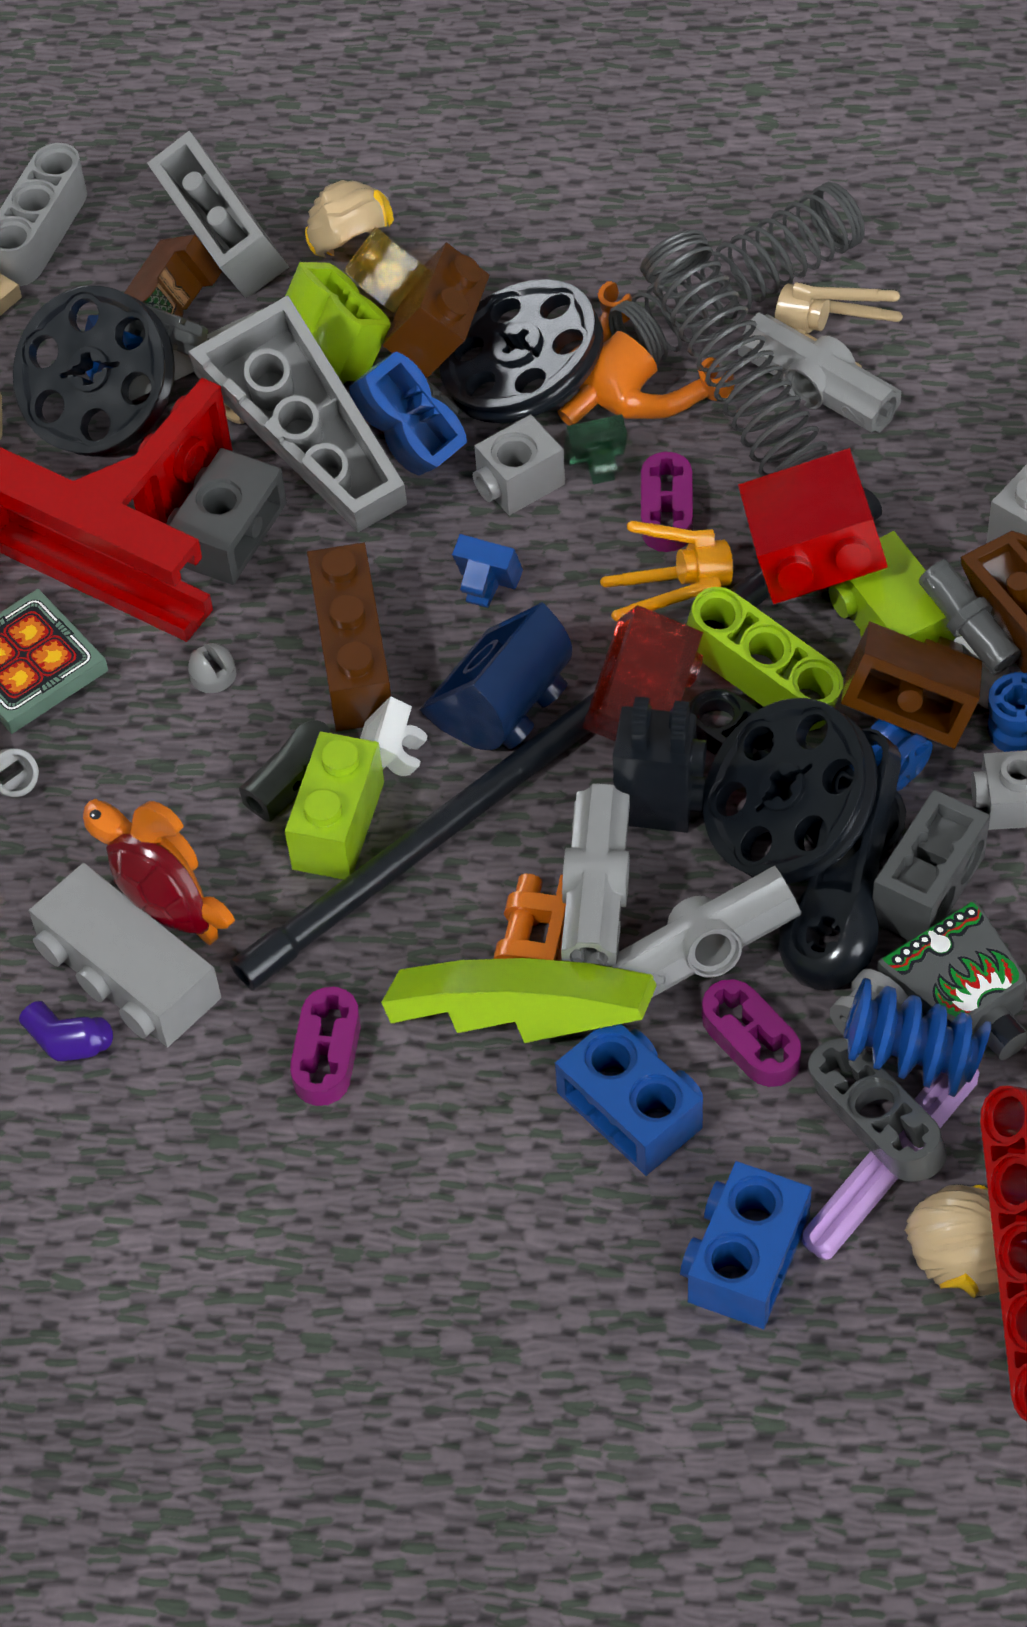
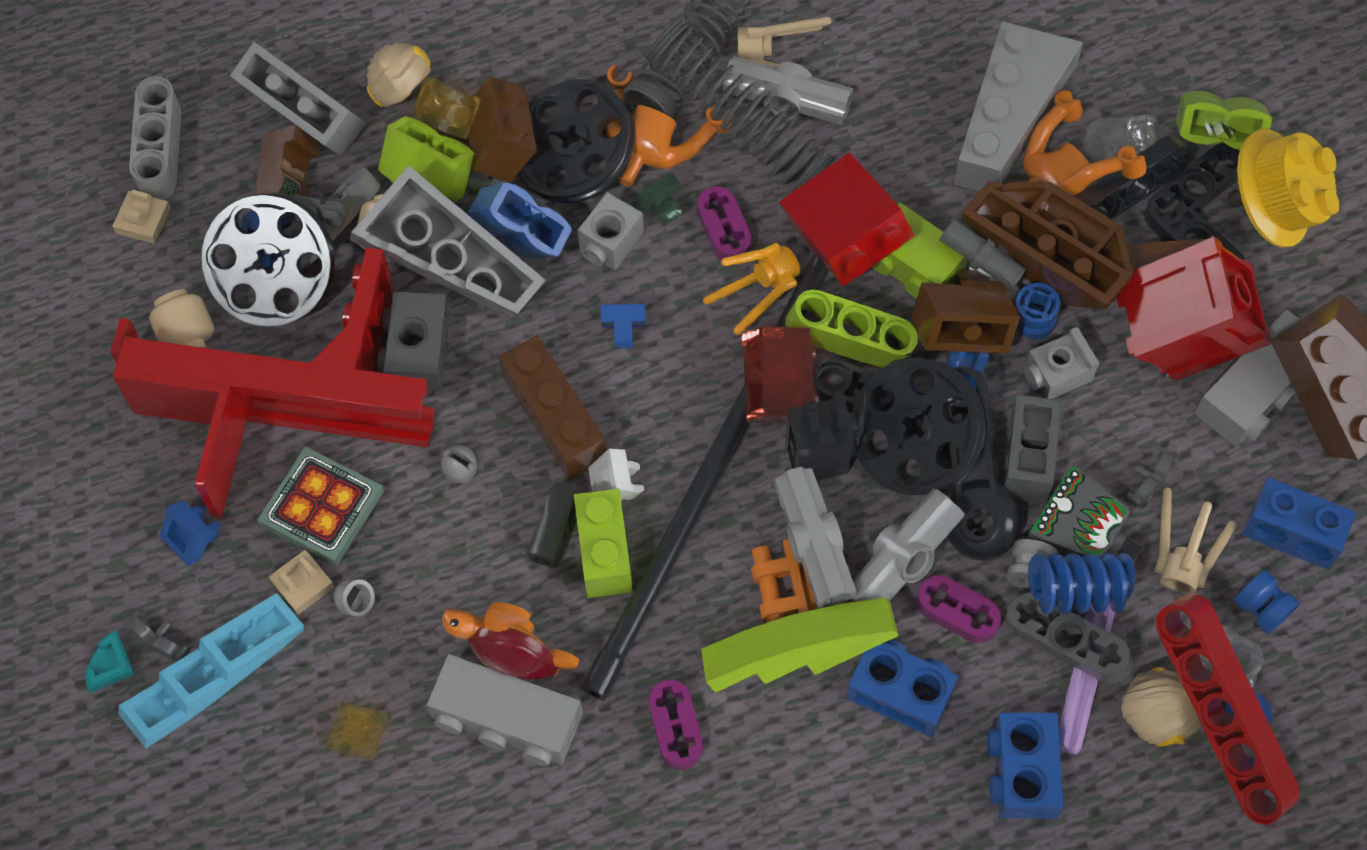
camera: 25 degrees left, 10 degrees up
(66, 1038) = (490, 787): dark purple arm -> none
(501, 681) = (675, 406): dark blue brick -> none

